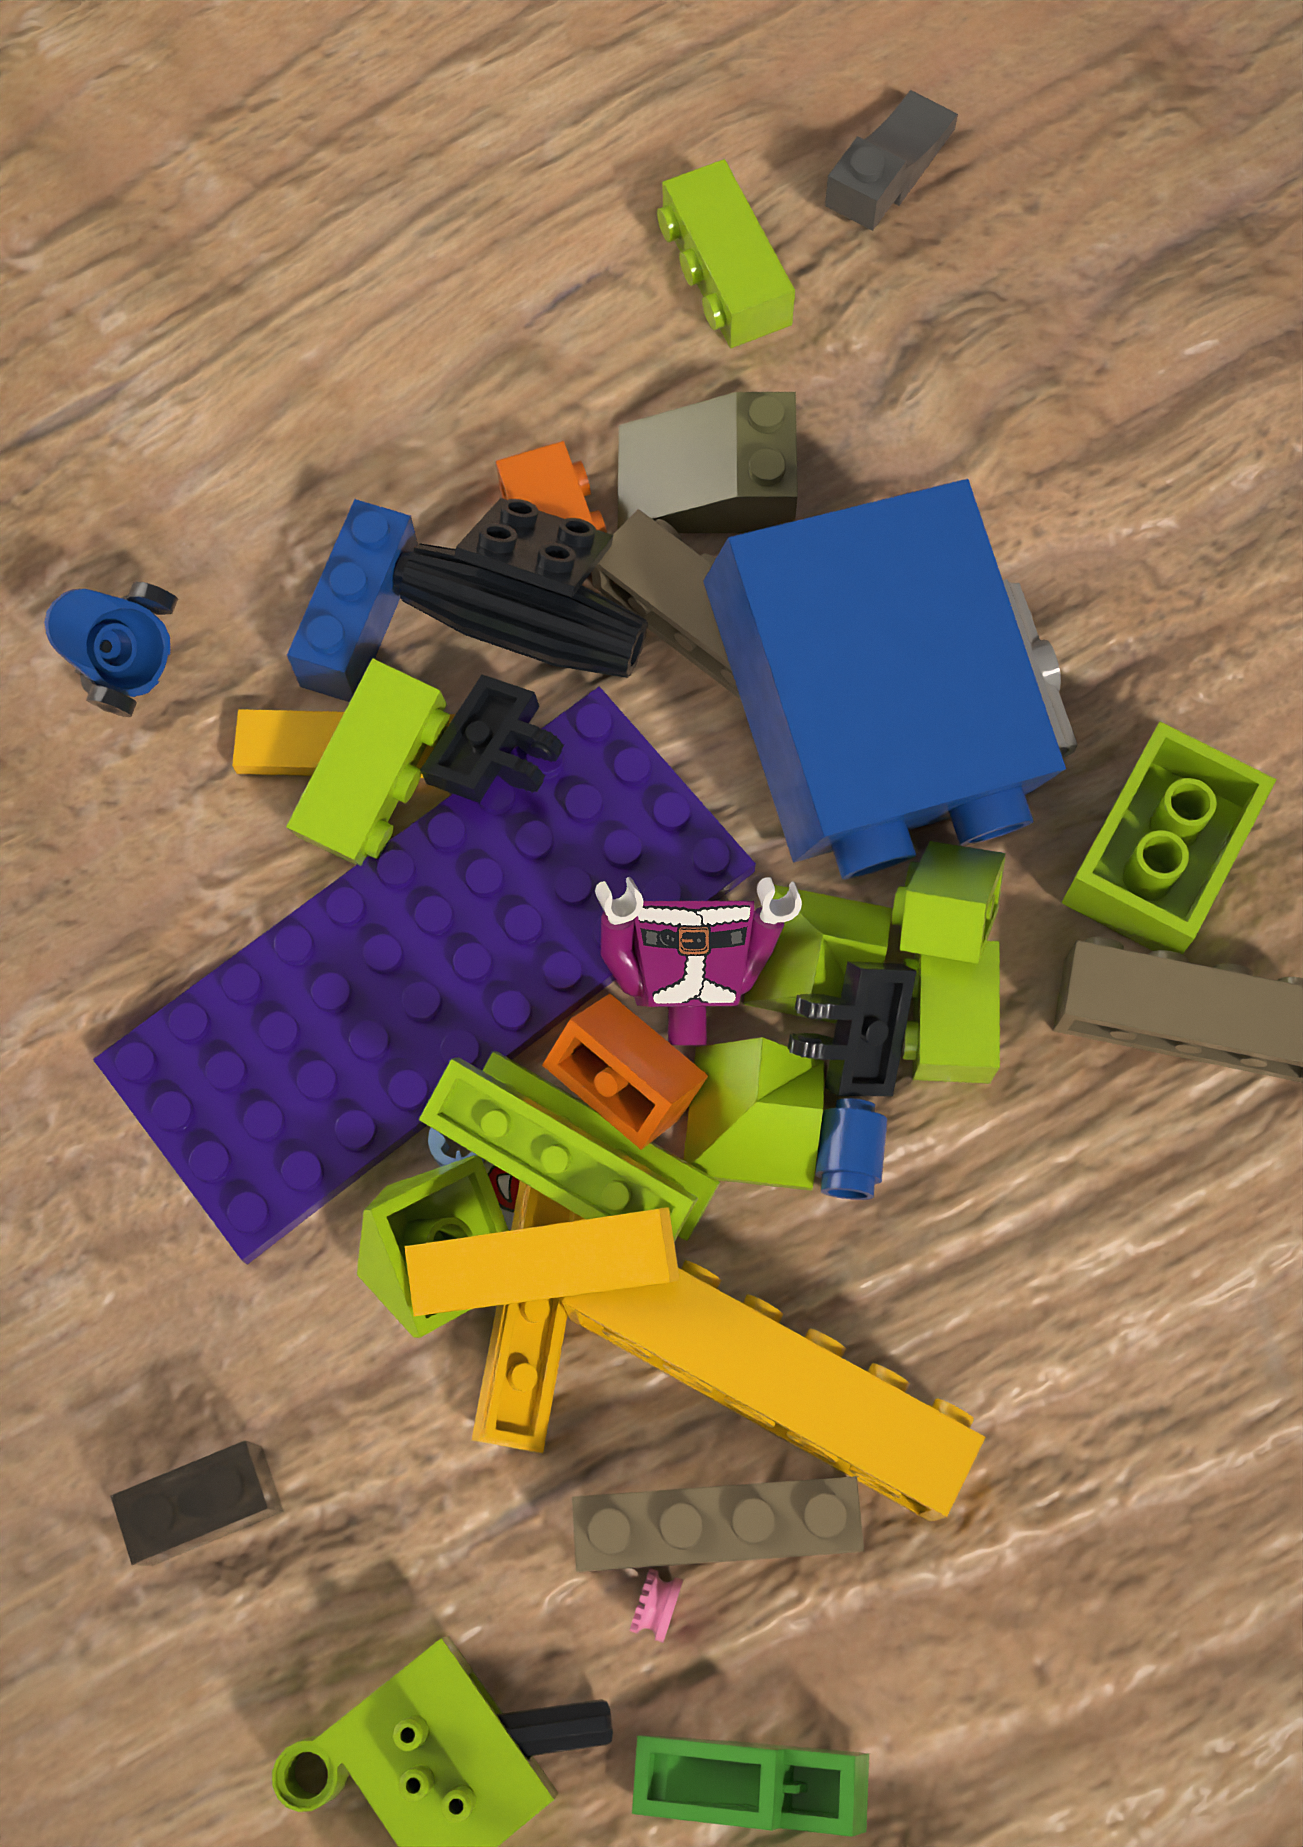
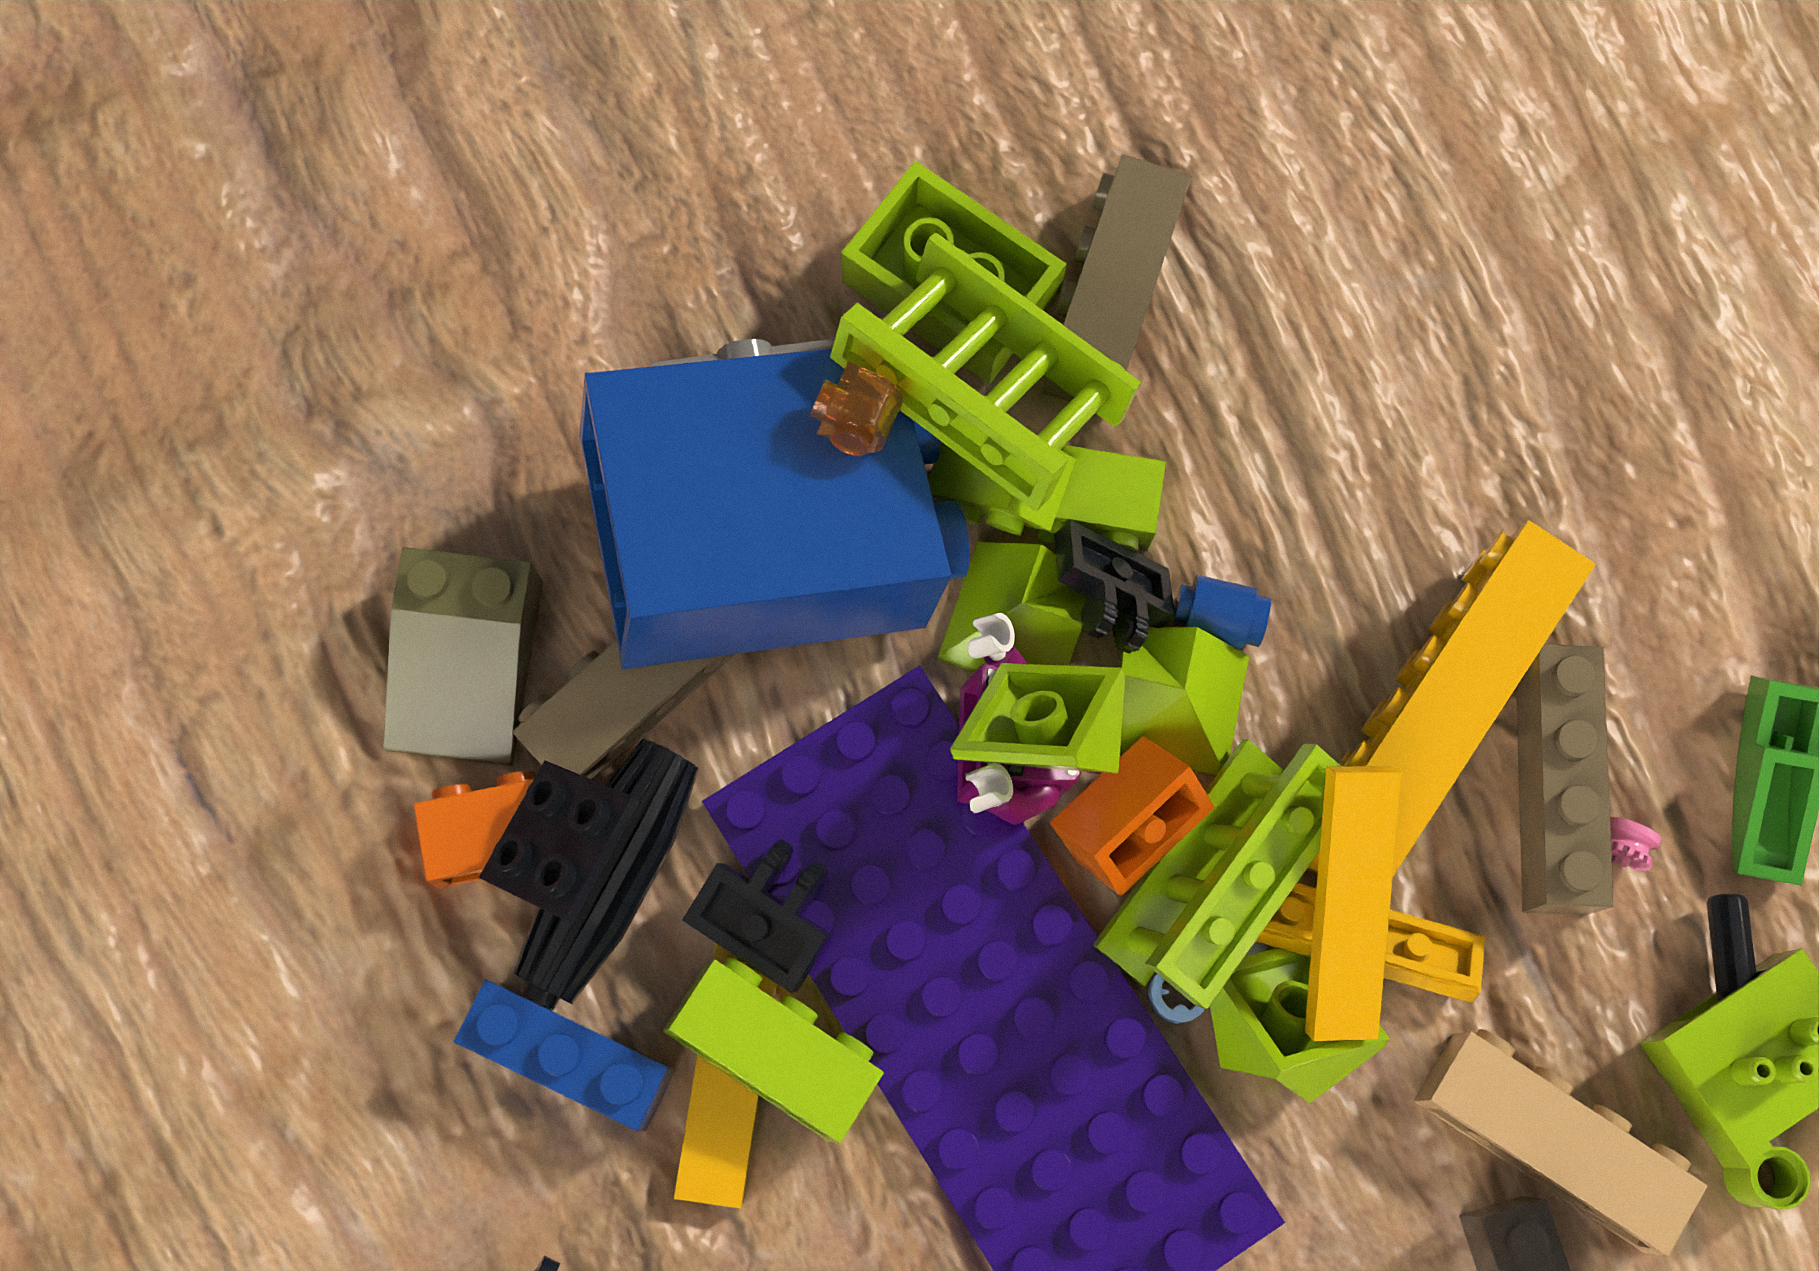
camera: 90 degrees left, 5 degrees up
(332, 1541) = (1561, 1142): none -> tan brick
(692, 949) = (1047, 718): none -> lime slope
(726, 254) = (190, 604): lime brick -> none
(889, 160) = (103, 411): dark grey slope -> none
(975, 721) = (857, 411): none -> clear orange plate
(986, 840) = (956, 412): none -> lime fence

